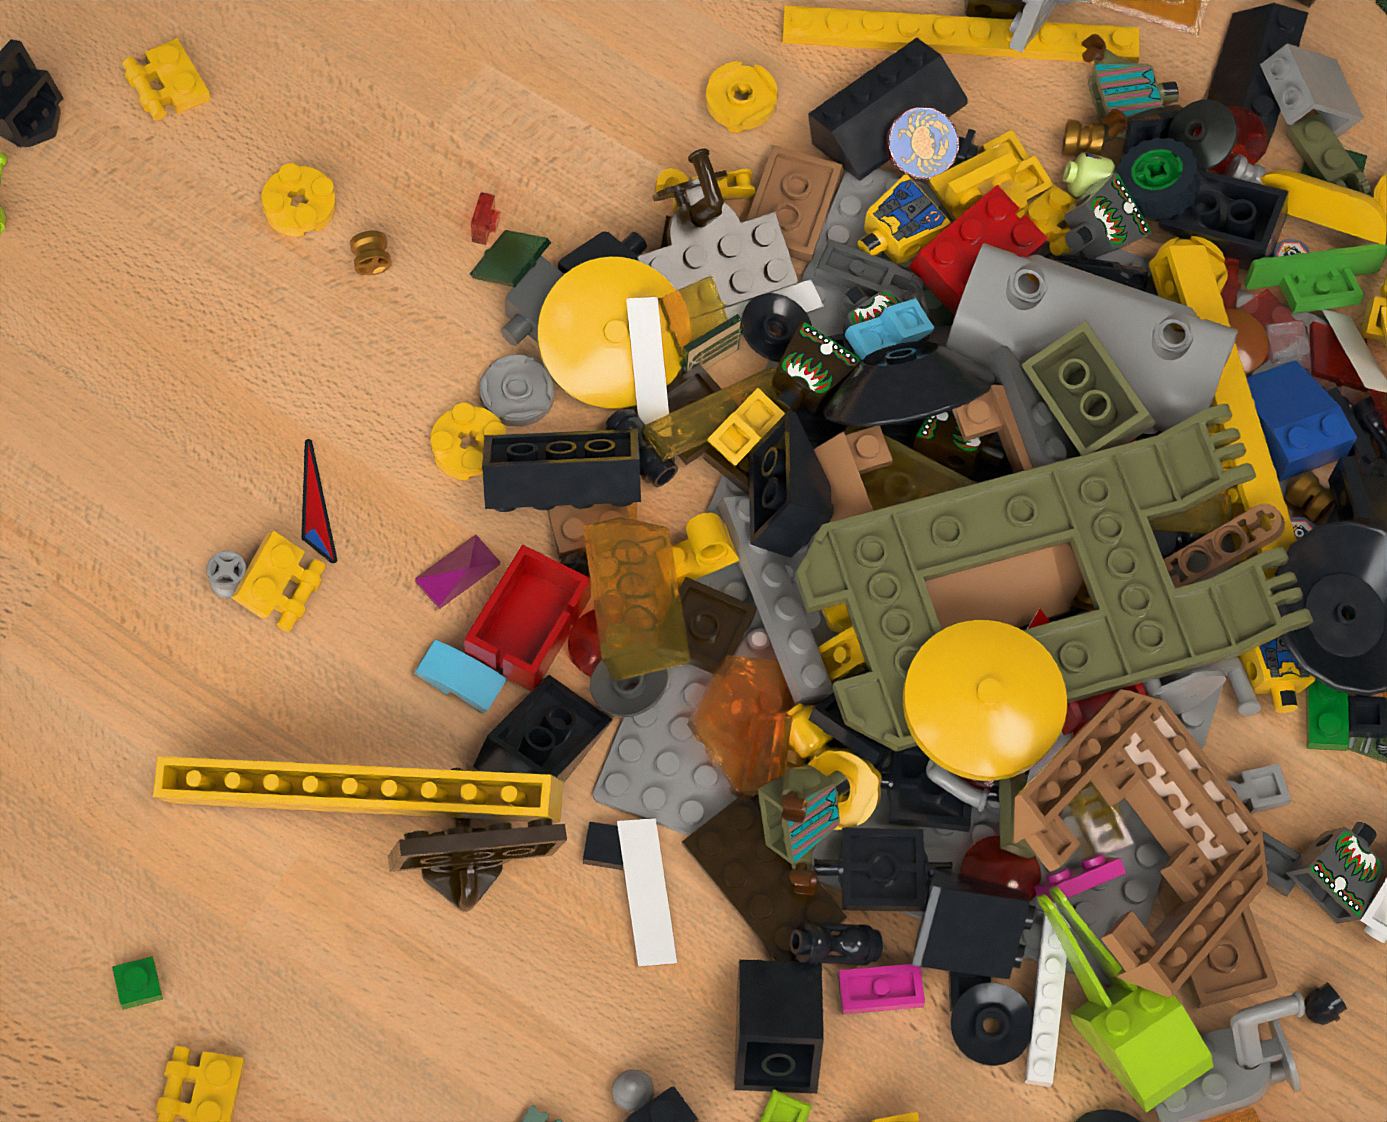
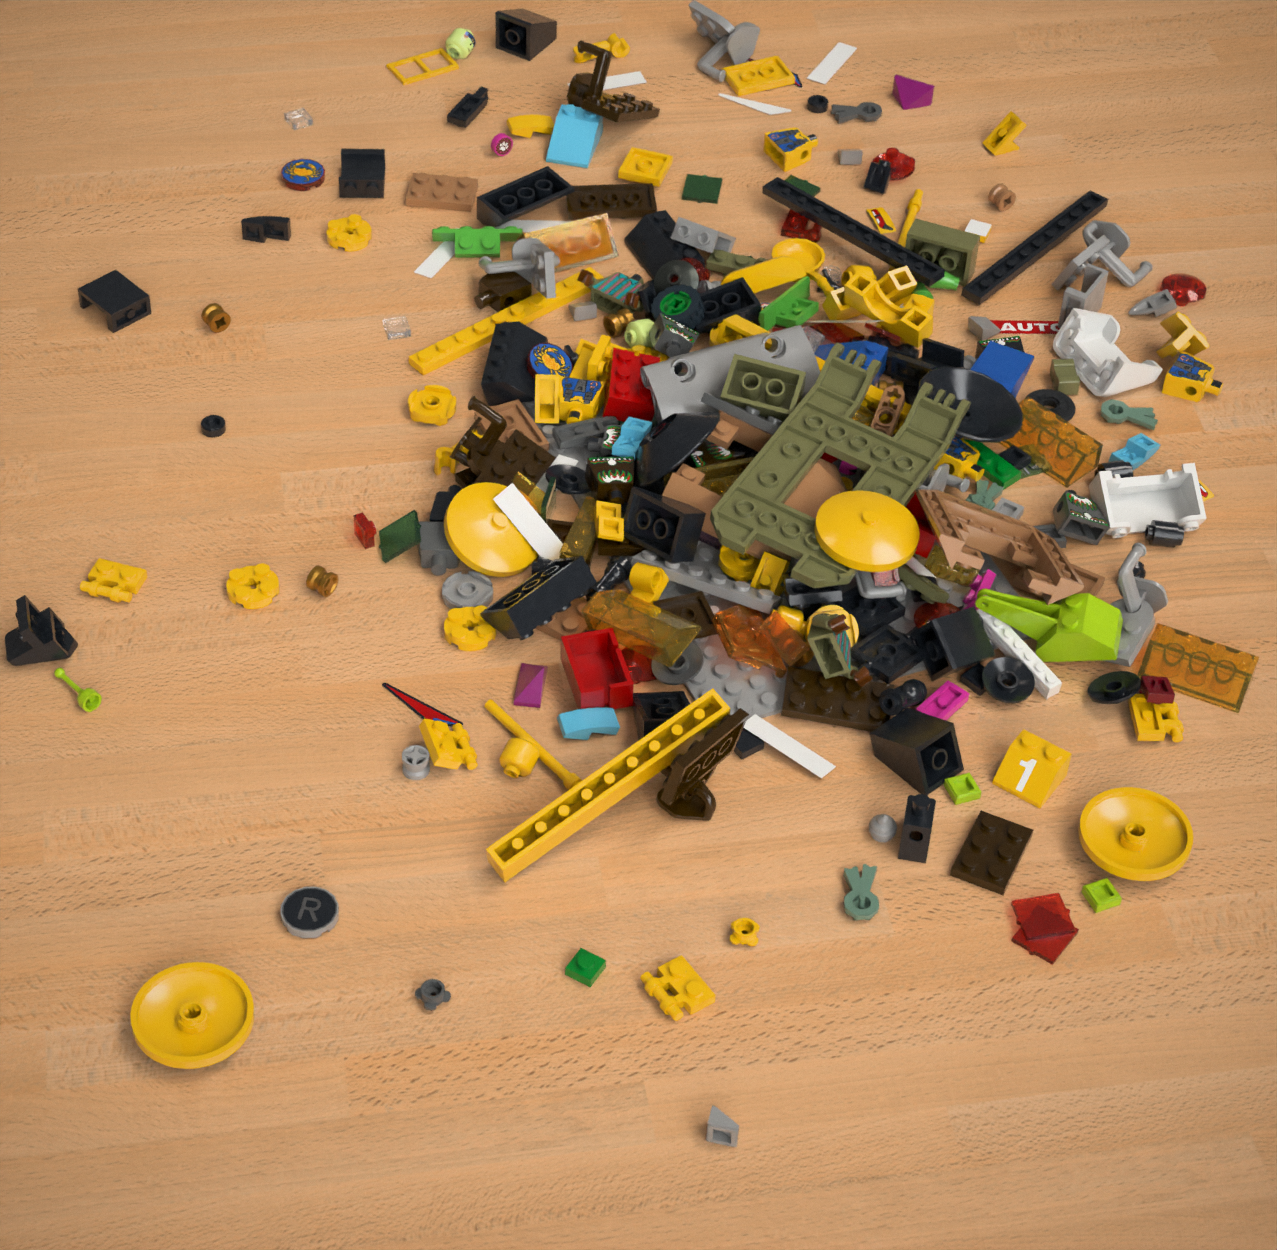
camera: 40 degrees left, 20 degrees down
(336, 660) = (519, 757): none -> yellow head
(340, 1077) = (747, 926): none -> yellow plate
(365, 736) = (569, 779): none -> yellow bar
(688, 502) = (614, 574): none -> black piece
(863, 189) = (547, 398): none -> yellow slope
(1065, 86) = (583, 310): none -> light grey slope
(1246, 750) = (983, 496): none -> sand green piece

